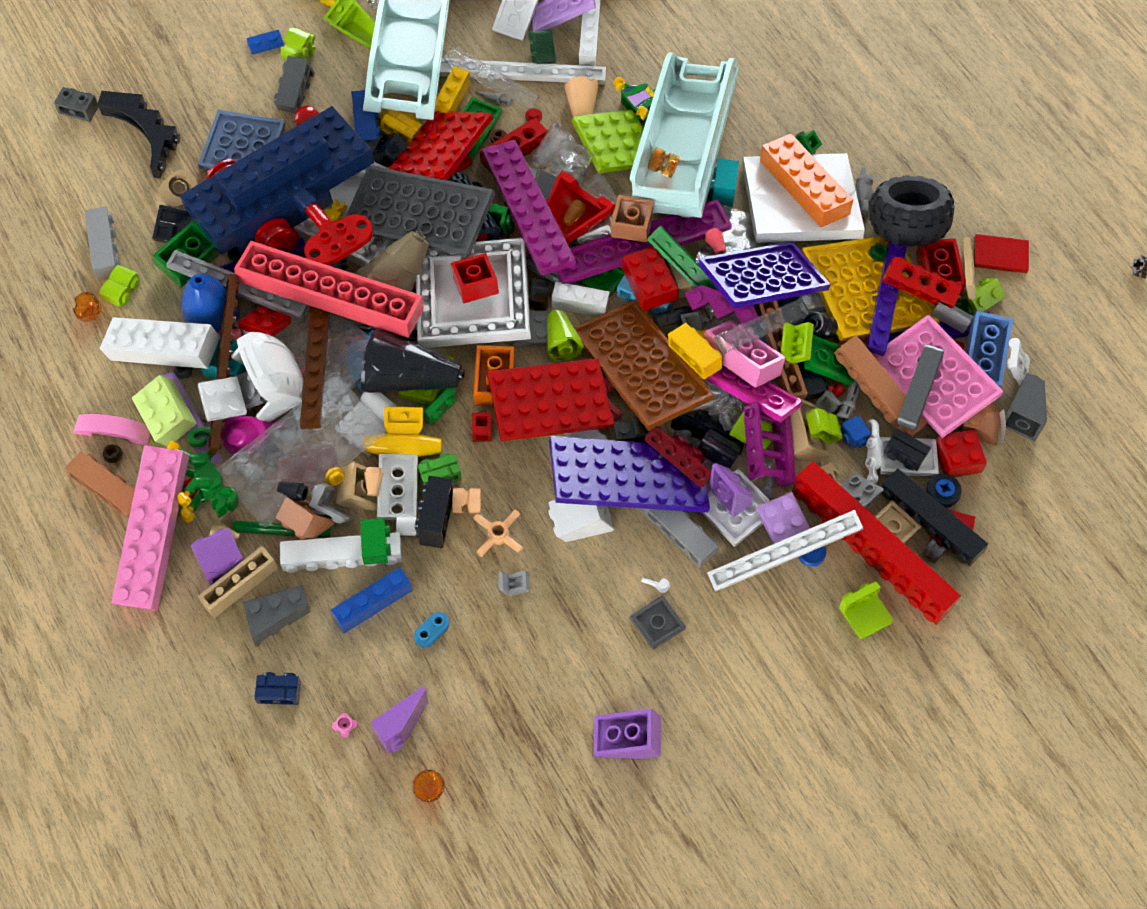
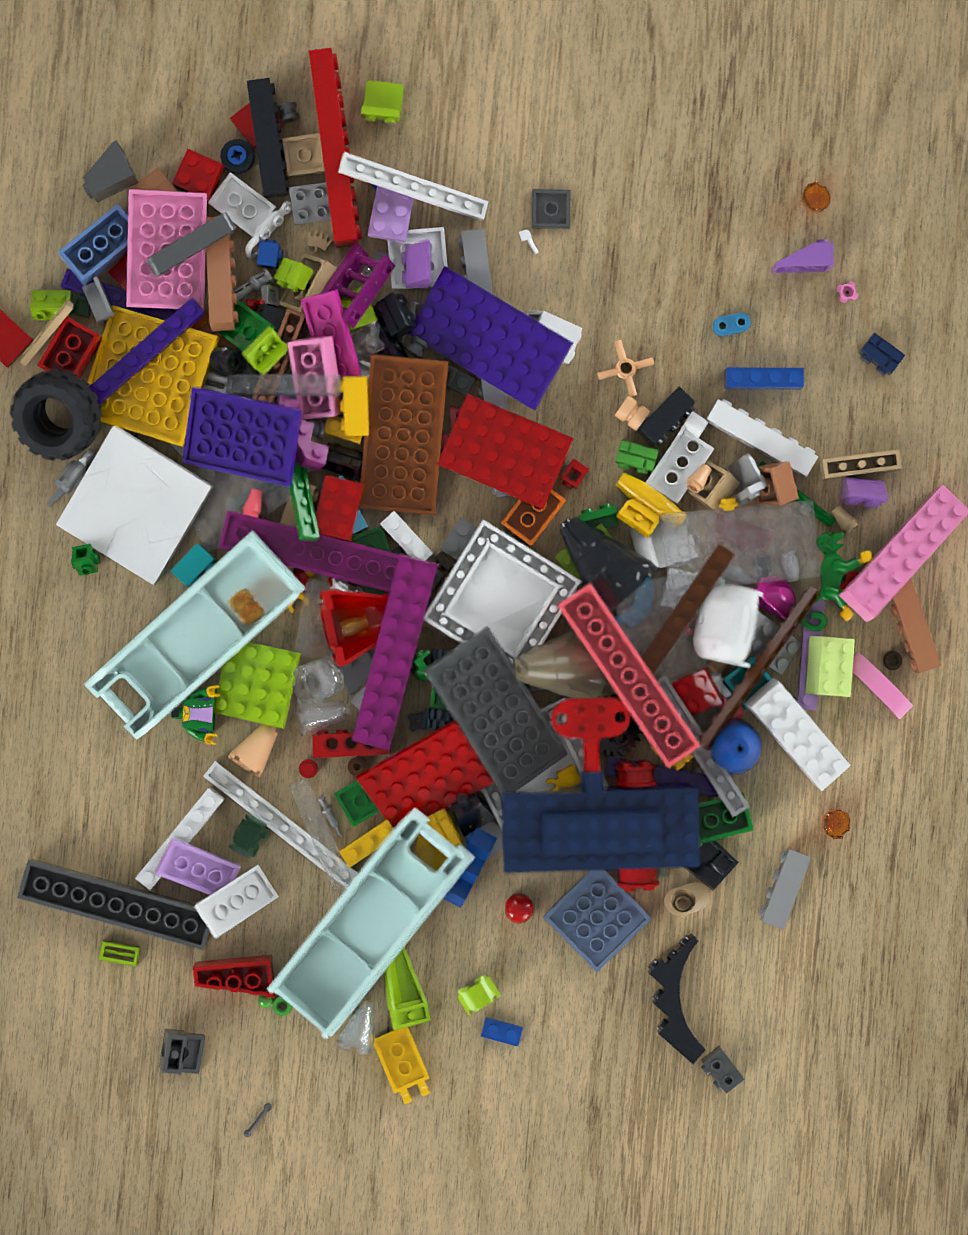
camera: 145 degrees left, 25 degrees up
(119, 286) = (795, 828): lime brick -> none
(222, 398) = (782, 627): white plate -> none
(274, 612) = (846, 420): dark grey wedge -> none
(293, 84) = (510, 952): dark grey wedge -> none
(293, 490) = (770, 506): black cone -> none
(374, 541) = (734, 419): green brick -> none
(474, 278) = (494, 603): red brick -> none
(514, 583) = (642, 316): light grey bracket -> none
(562, 338) = (449, 512): lime cone -> none
(628, 735) = (640, 134): medium lavender slope -> none
(632, 218) = (313, 572): nougat slope -> none
(680, 454) = (433, 325): dark red bracket -> none
(693, 319) = (332, 440): dark grey plate -> none
(806, 180) = (124, 511): orange brick -> none
(878, 252) = (115, 400): dark green plate -> none
(906, 450) = (243, 205): black brick -> none
(912, 285) = (95, 311): red brick -> none
(1003, 426) = (145, 171): white sticker -> none
(1018, 361) = (80, 217): white plate -> none

